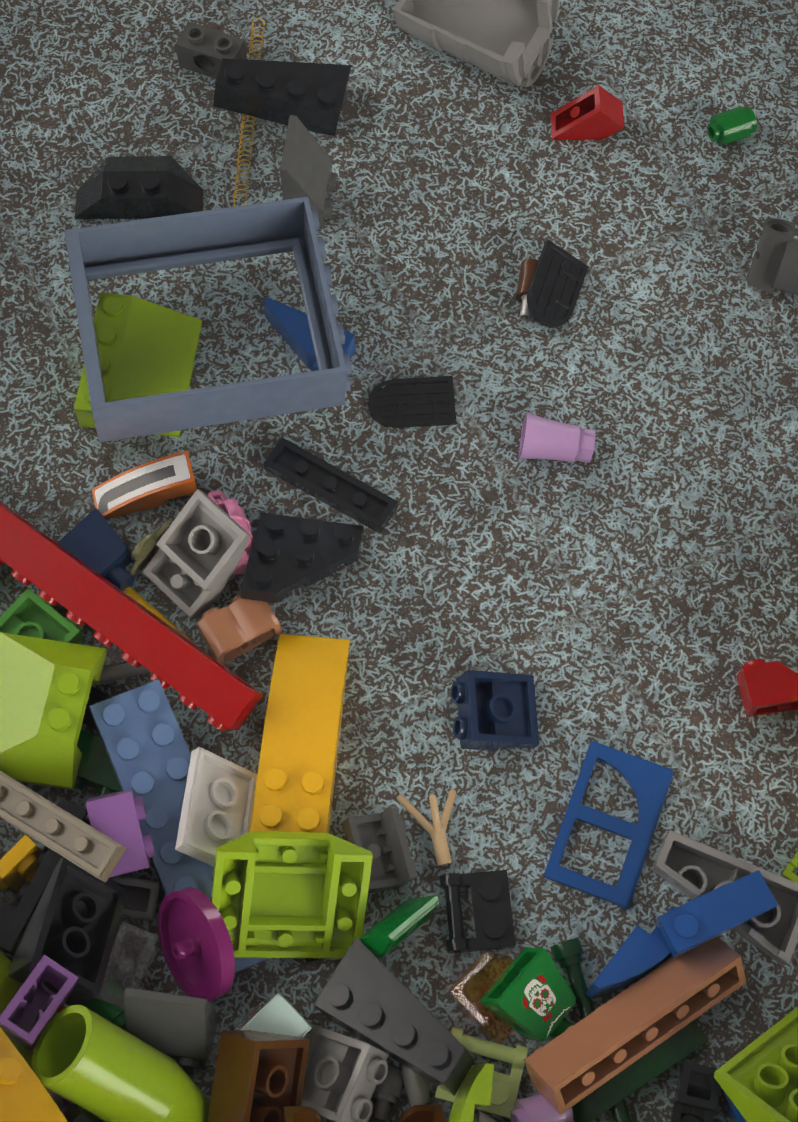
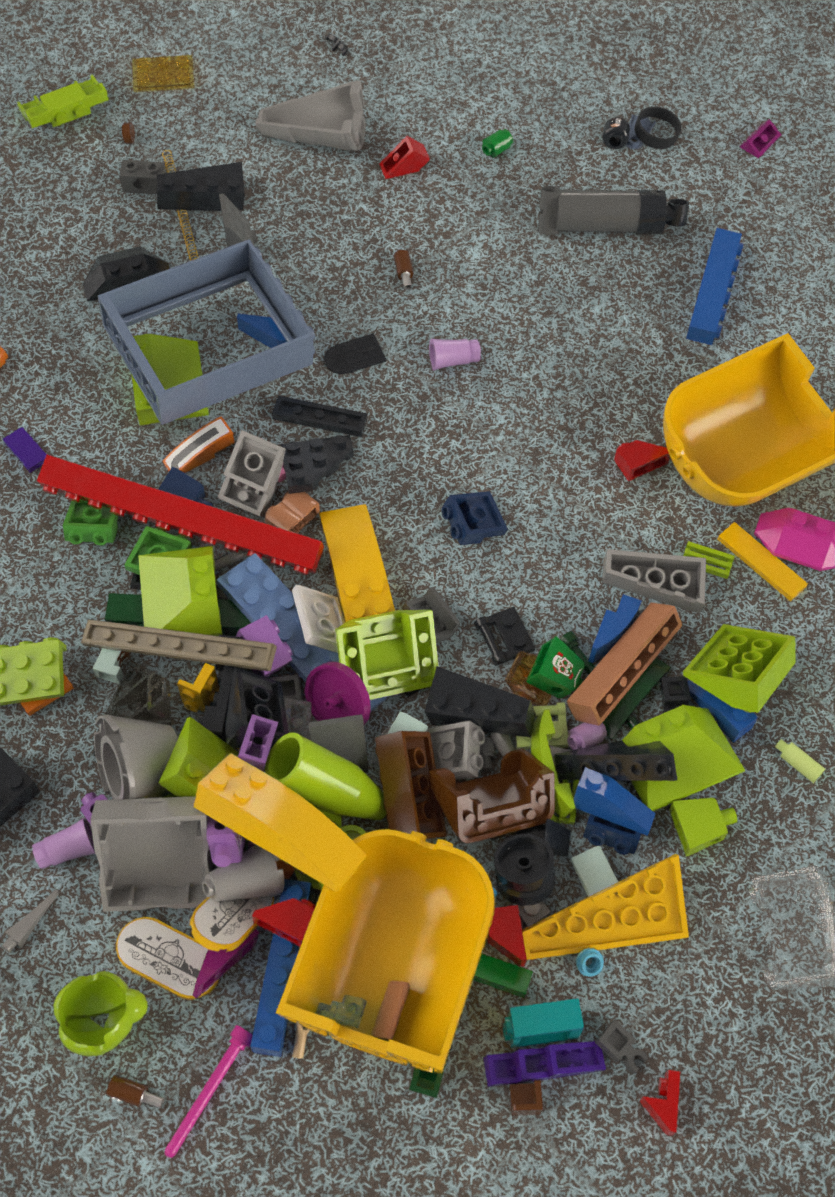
camera: 20 degrees left, 5 degrees down
(147, 547) = (217, 479): olive plate -> none
(399, 925) = (461, 653): green slope -> none
(439, 826) = (463, 598): tan plant -> none
(555, 286) = (420, 263): black window -> none
(650, 786) = (585, 537): blue window -> none
(715, 913) = (650, 587): blue slope -> none

